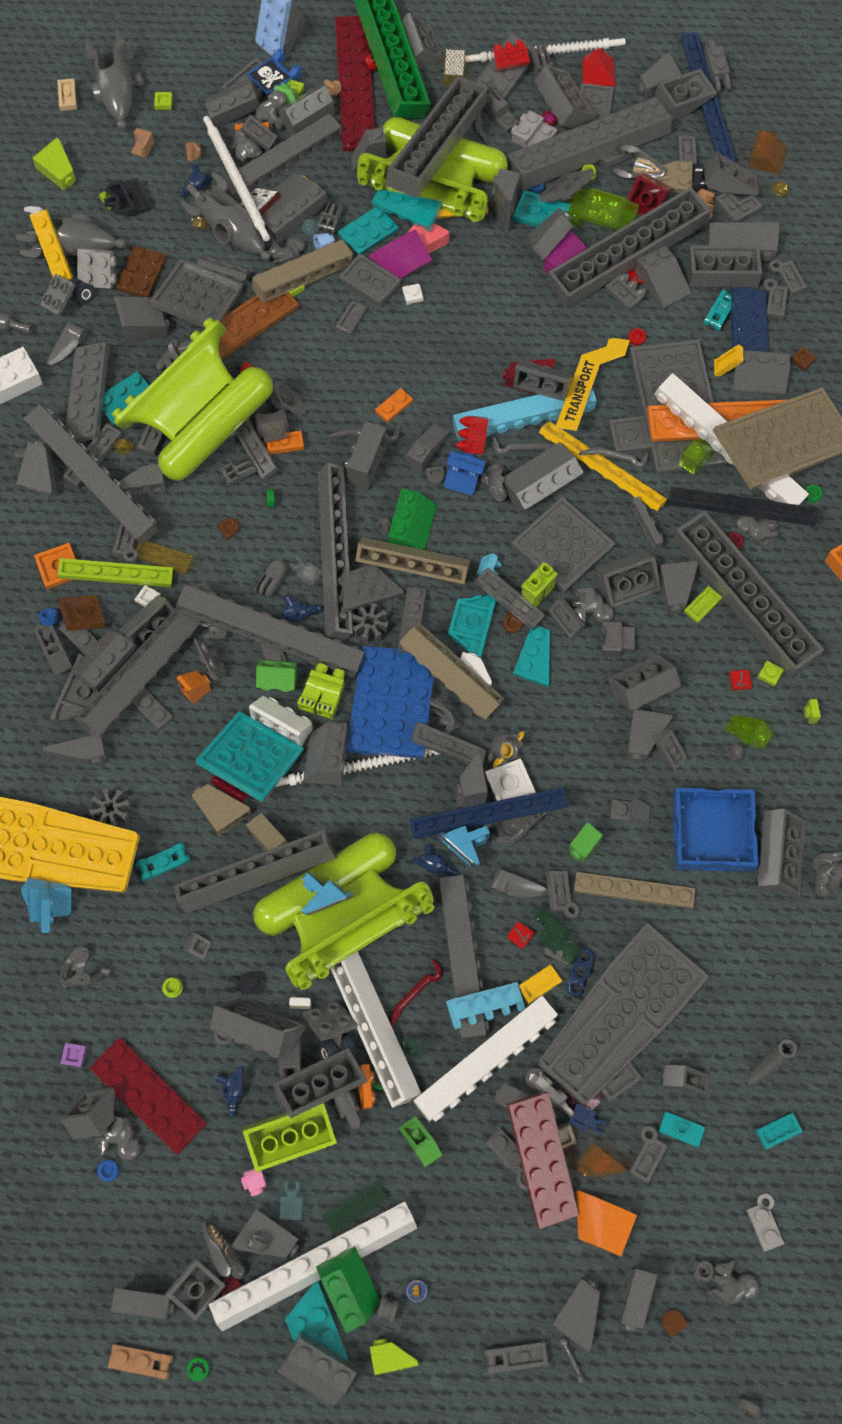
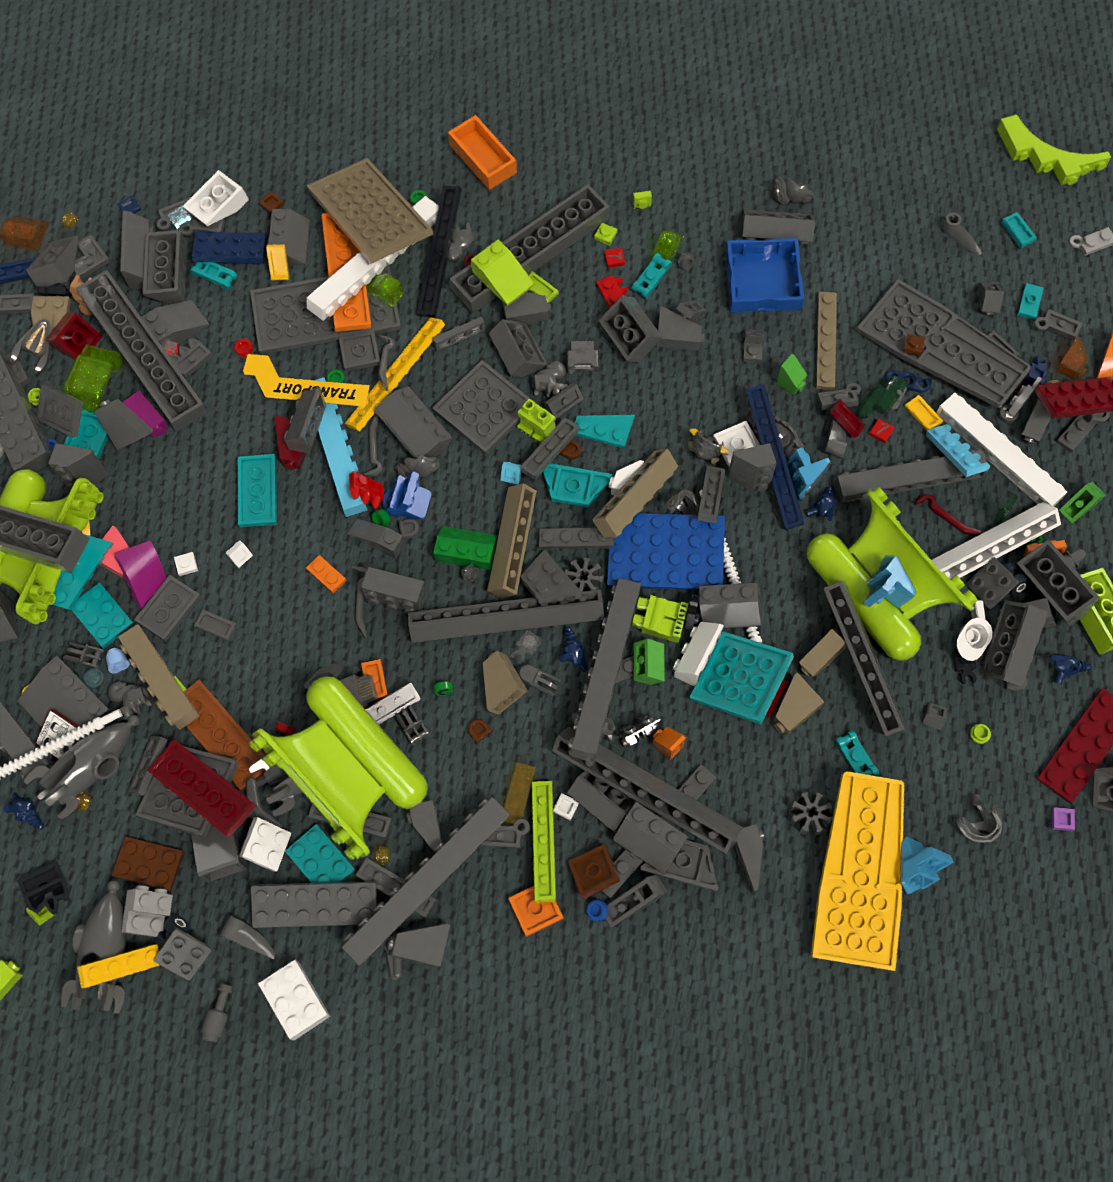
camera: 90 degrees left, 0 degrees up
(141, 353) = (265, 844): none -> white plate
(191, 299) = (201, 788): none -> dark red plate
(268, 990) = (974, 638): none -> white piece
(270, 544) = (501, 682): none -> dark tan slope
(321, 717) = (693, 616): none -> black plate
(418, 333) = (239, 554): none -> white tile
(445, 449) = (381, 518): none -> green tile
(482, 348) = (257, 490): none -> teal plate
(531, 895) = (847, 418): none -> dark red plate
(600, 415) = (336, 376): none -> green tile
(619, 978) = (914, 345): none -> reddish brown plate
(697, 675) = (610, 289): none -> red plate
(707, 556) = (501, 272): none -> lime slope
(715, 714) = (651, 276): none -> teal plate
(780, 275) = (179, 217): none -> clear light blue plate
(798, 238) = (129, 204): none -> dark blue tile
(801, 307) = (216, 199): none -> white slope

